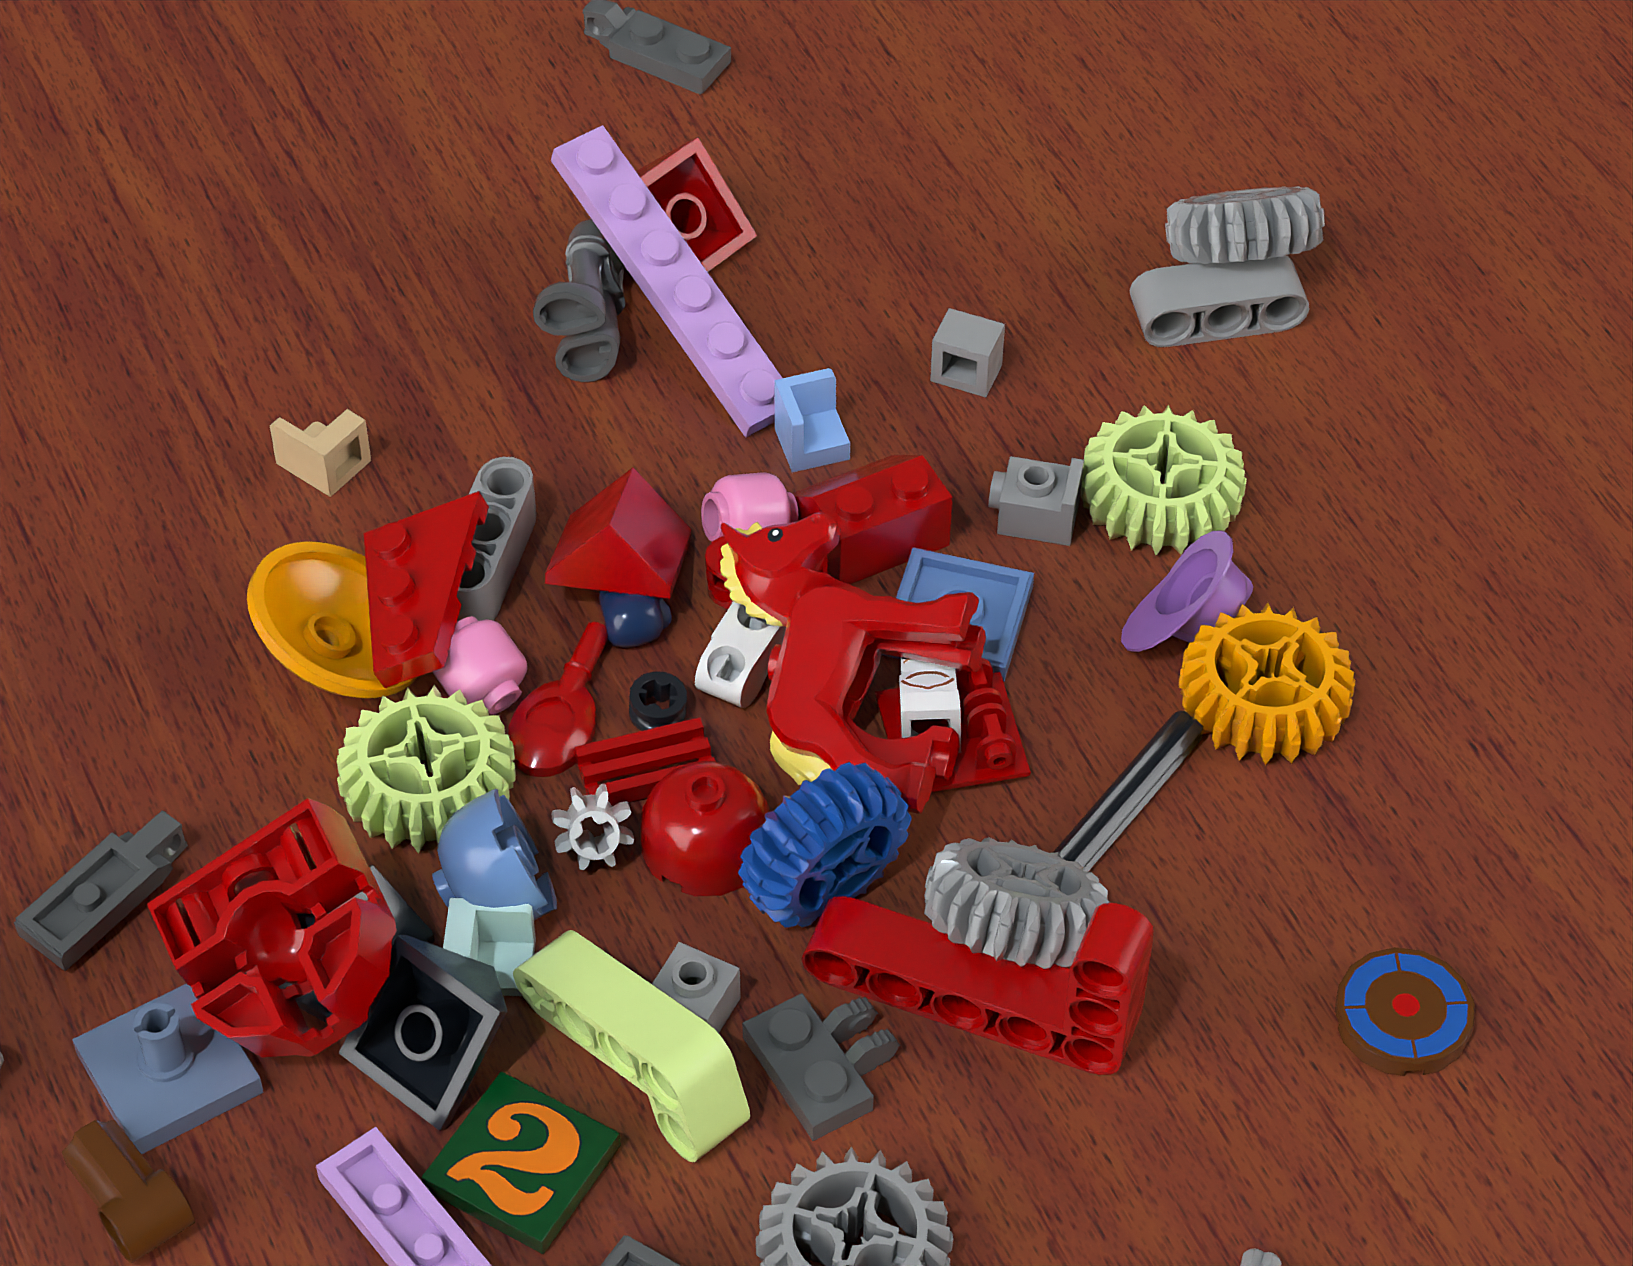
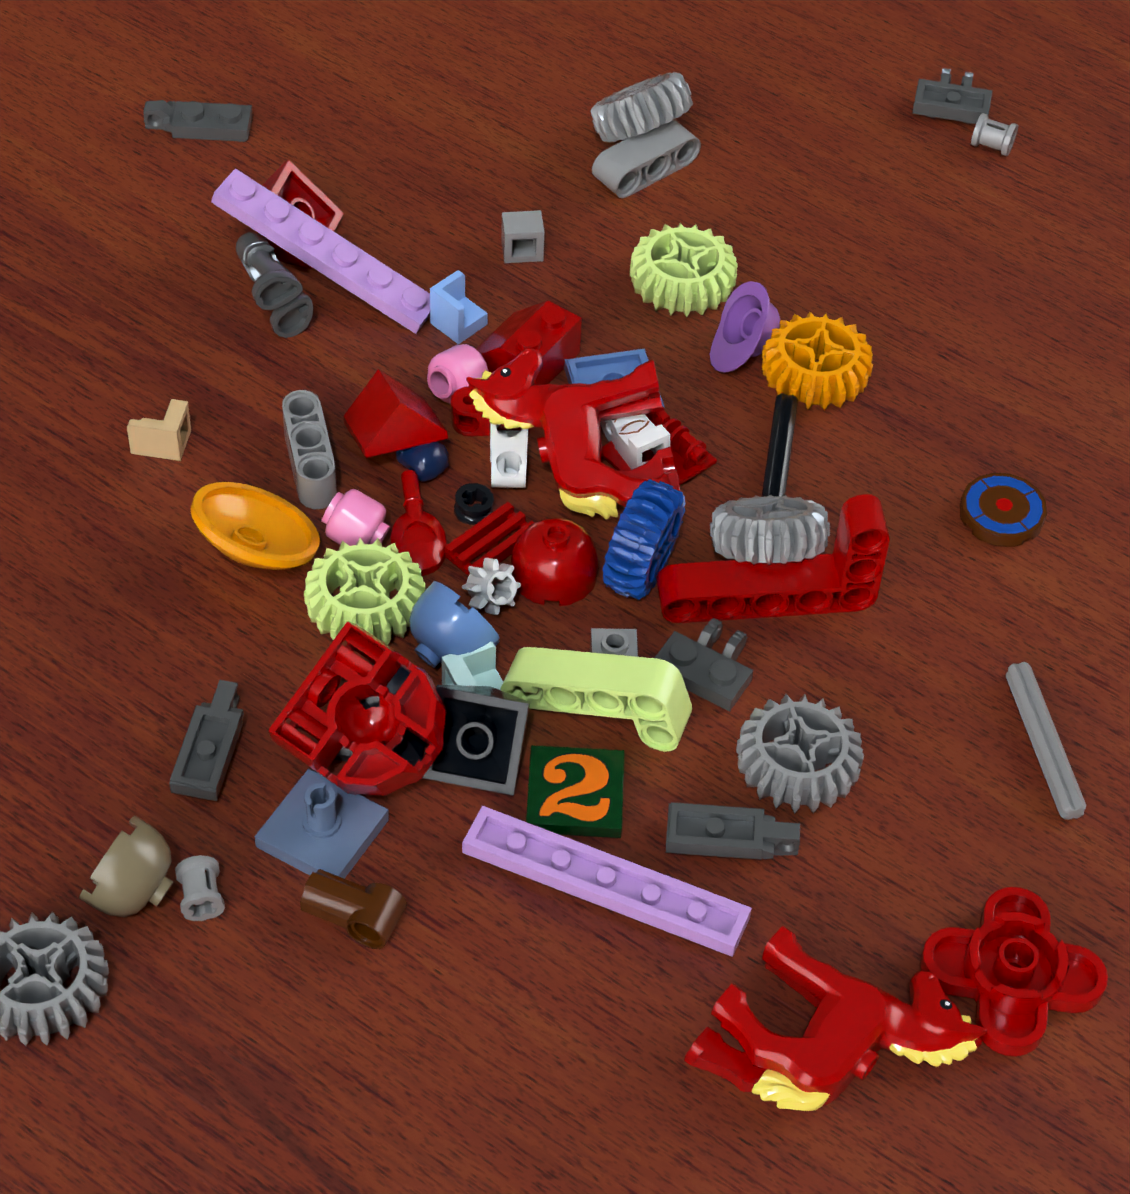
camera: 30 degrees left, 0 degrees up
(414, 586) = (294, 486): red wing -> none
(1037, 499) = (620, 305): light grey brick -> none

